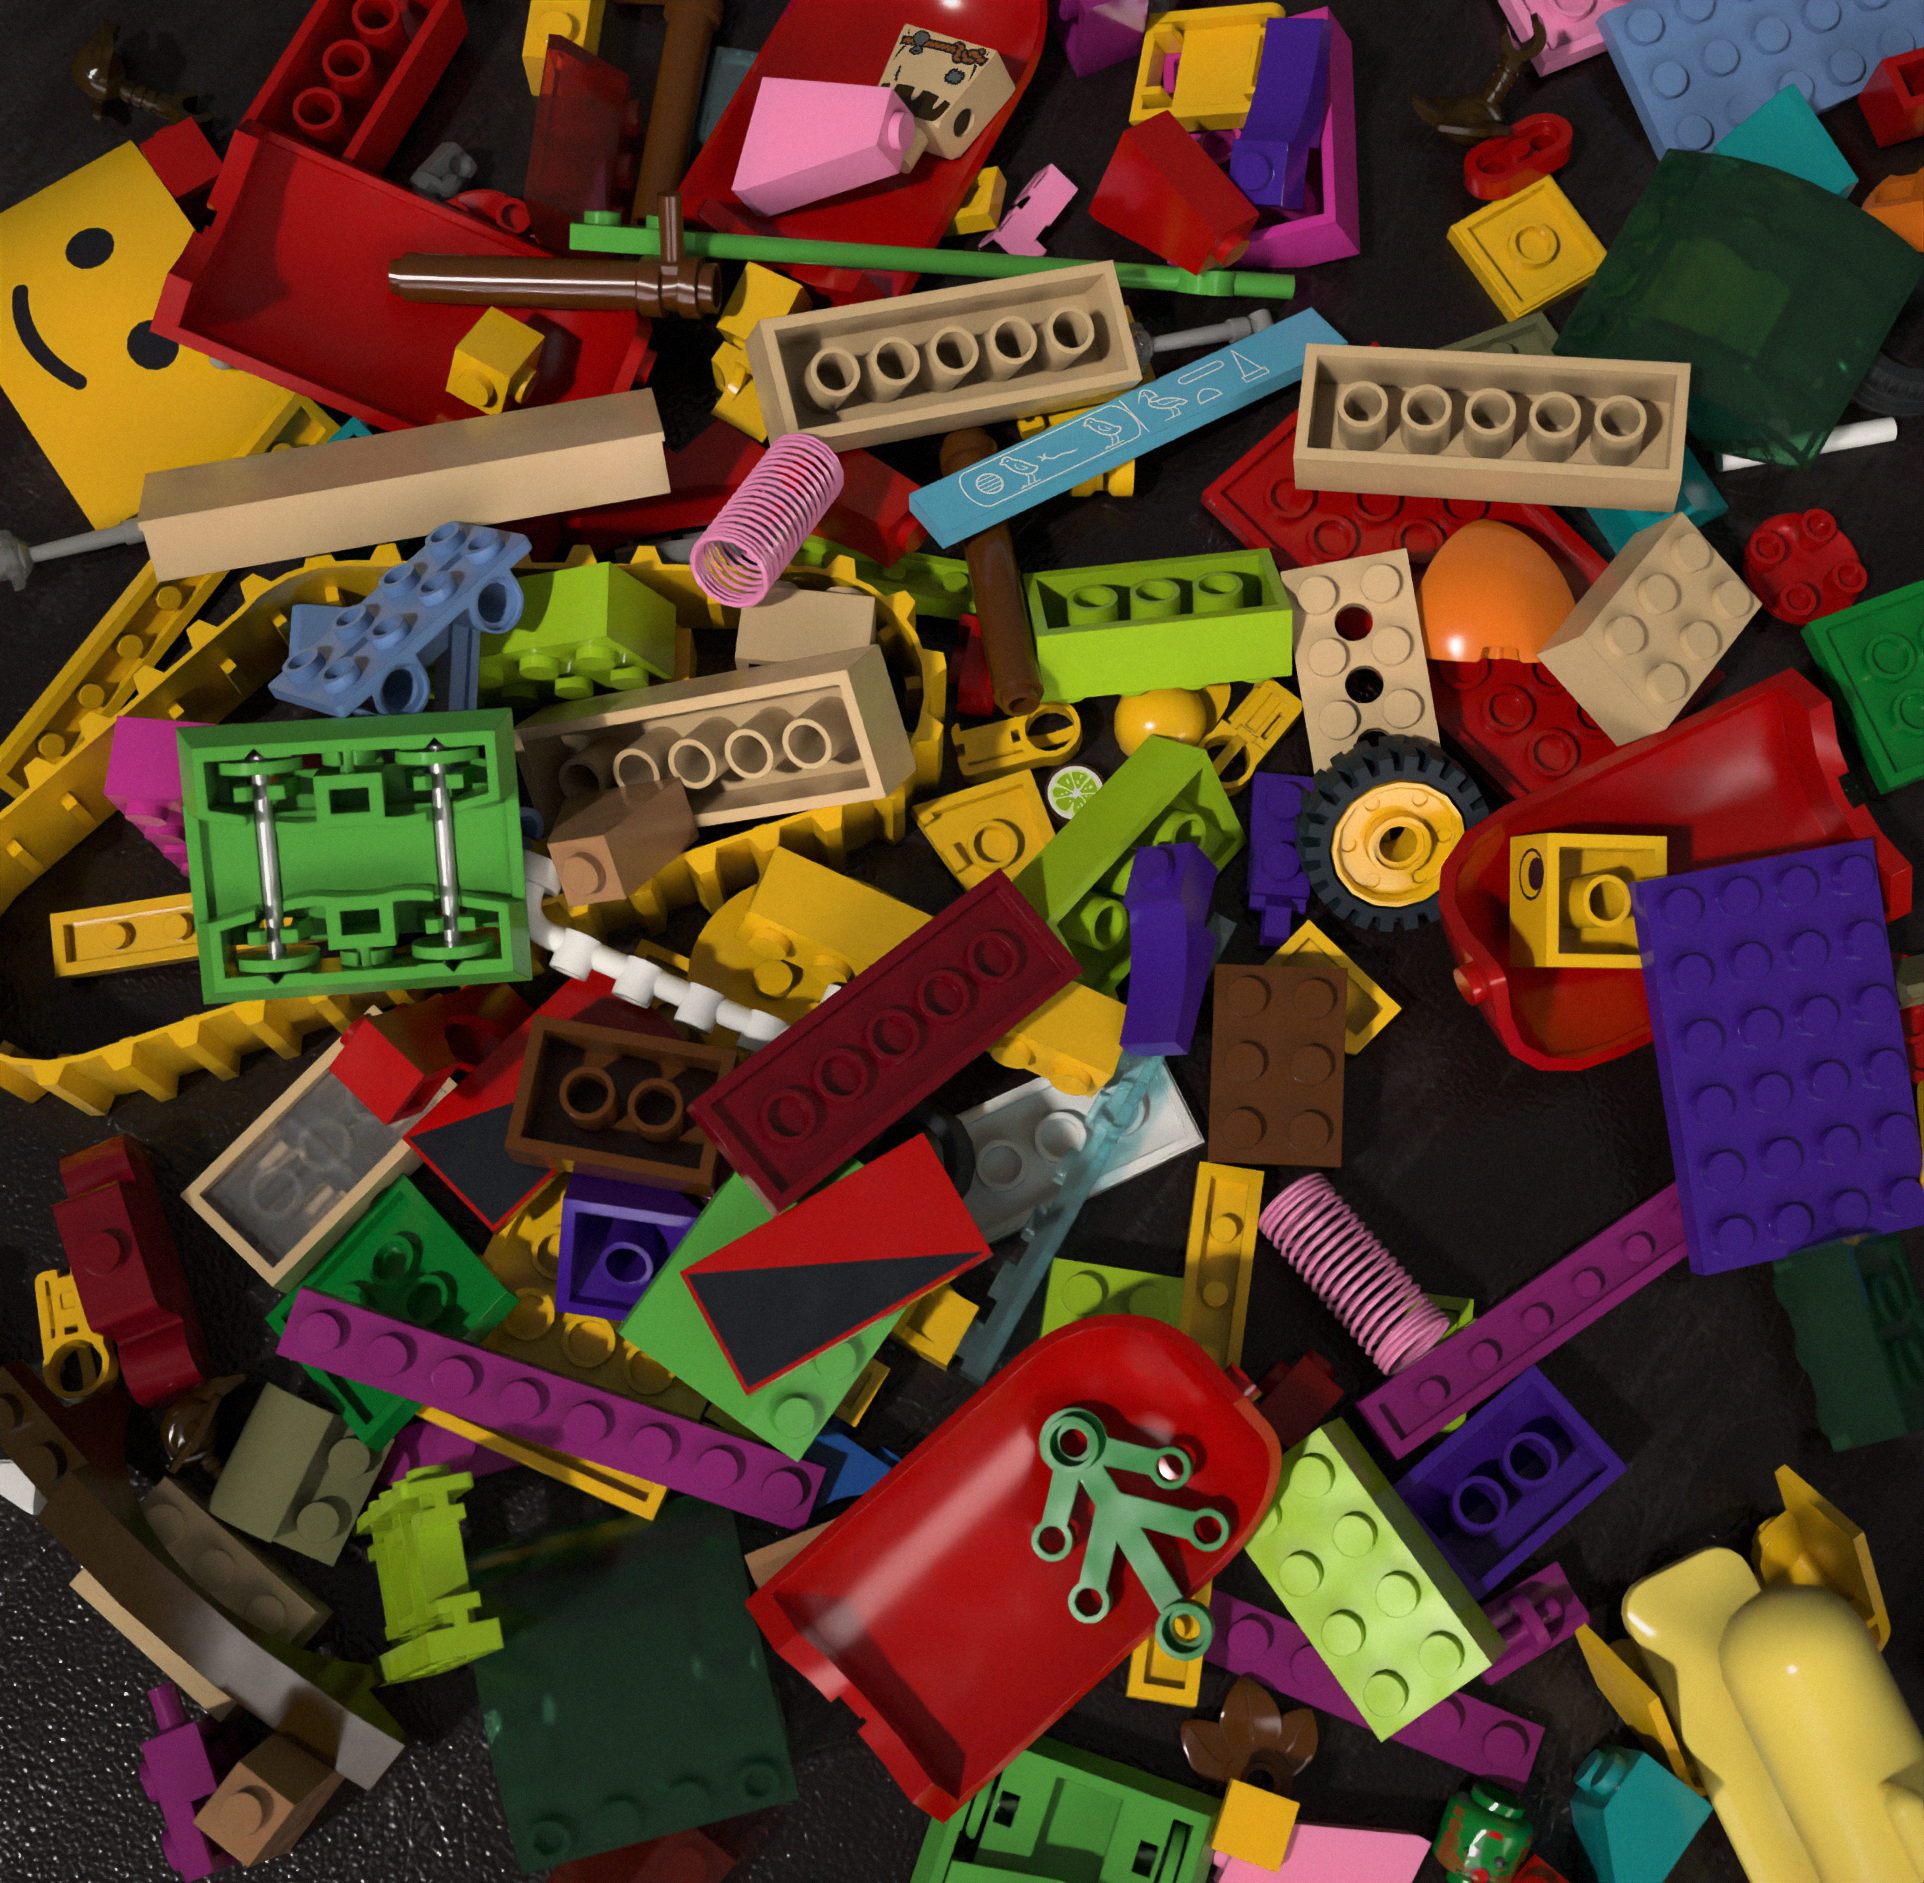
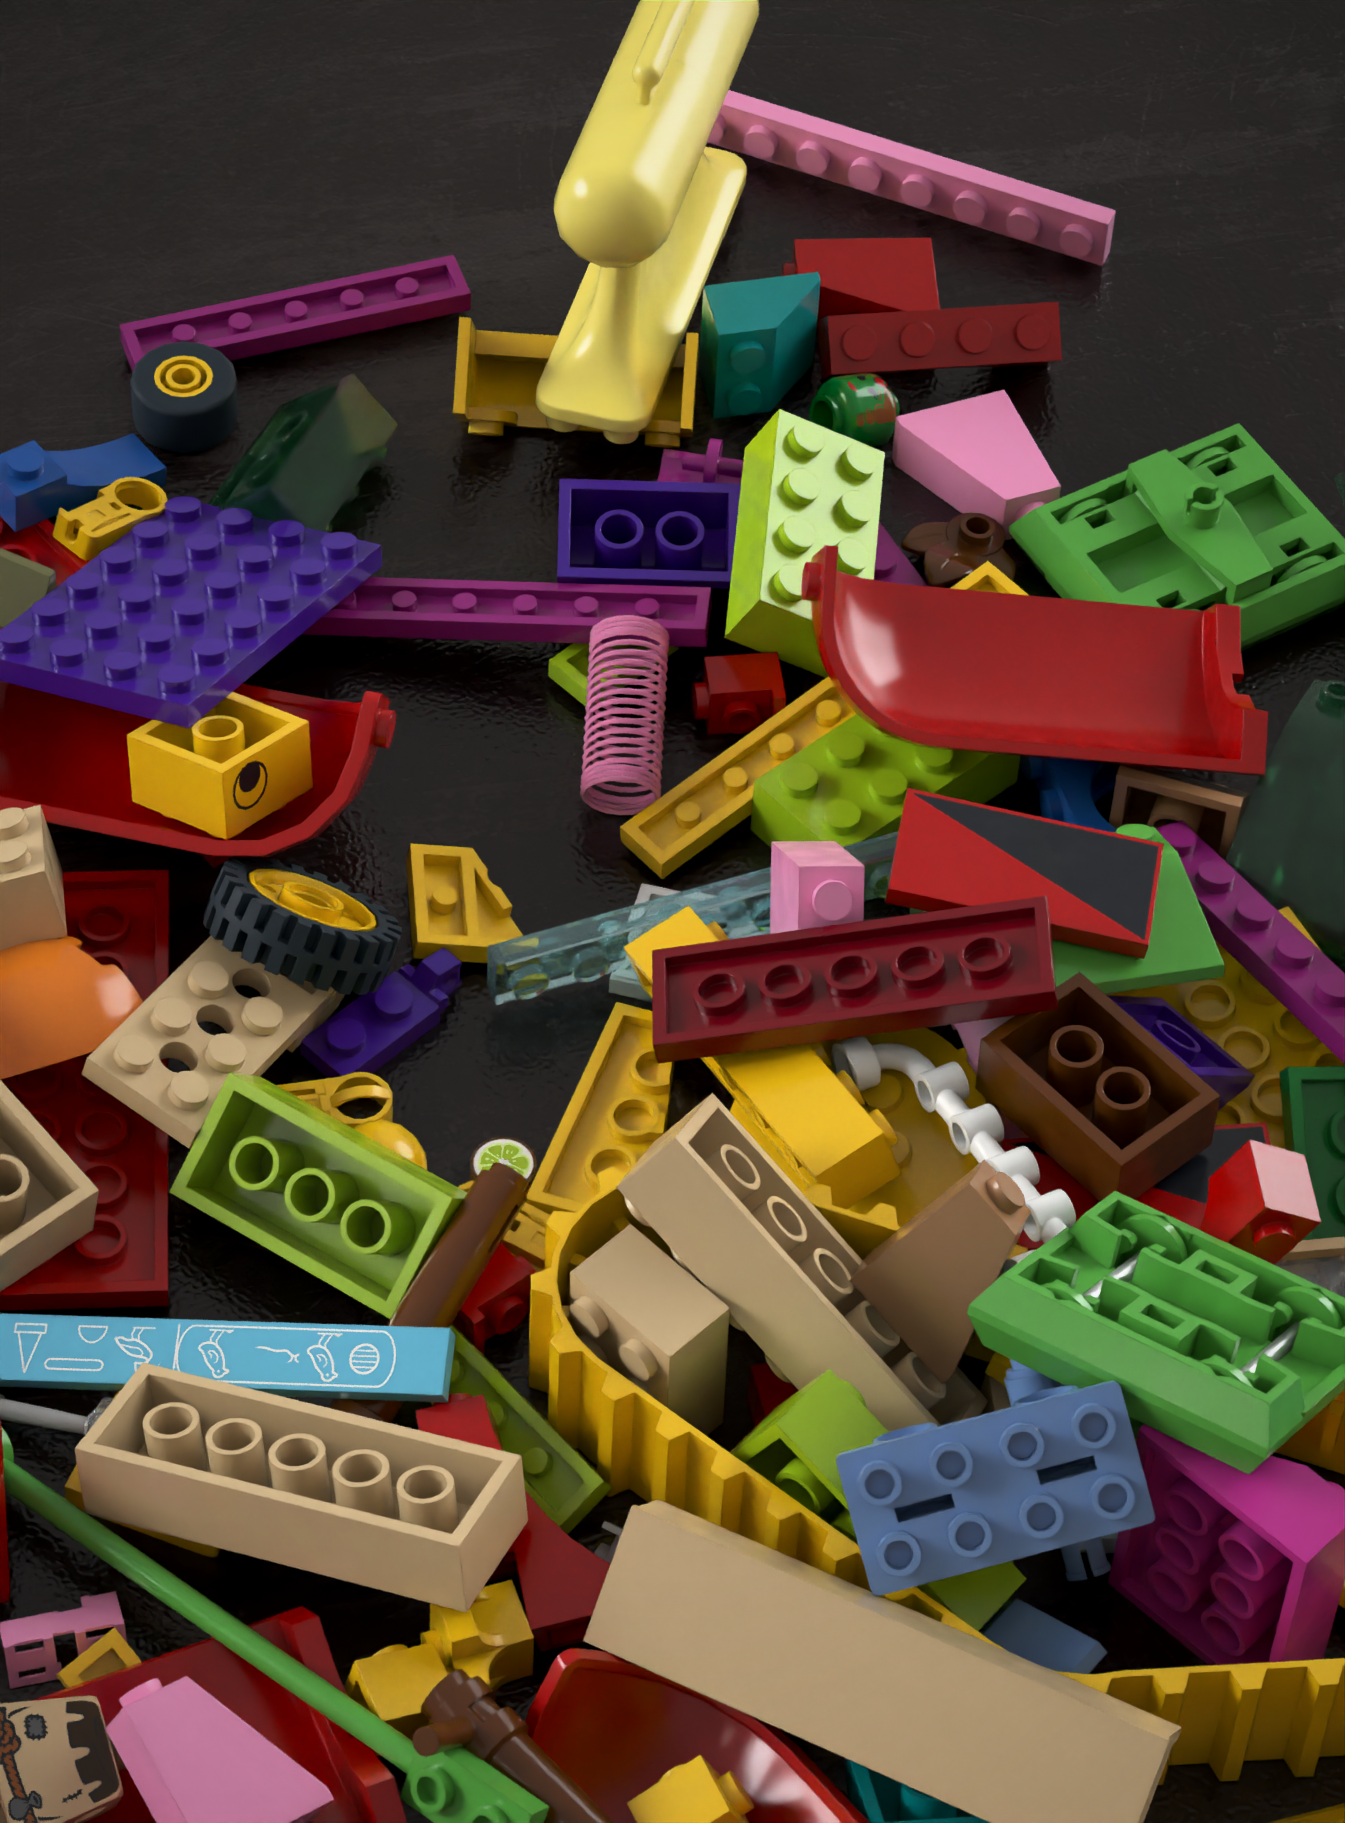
camera: 140 degrees left, 25 degrees down
(766, 473) = (689, 1347): bright pink piece -> none
(1010, 1144) = (814, 885): none -> bright pink slope
(1081, 876) = (528, 1068): lime slope -> none
(1122, 1520) = (943, 692): green plant -> none
(1169, 947) = (566, 949): dark purple slope -> none
(1254, 1825) = (1008, 488): yellow tile -> none
(1277, 1065) = (546, 857): reddish brown brick -> none

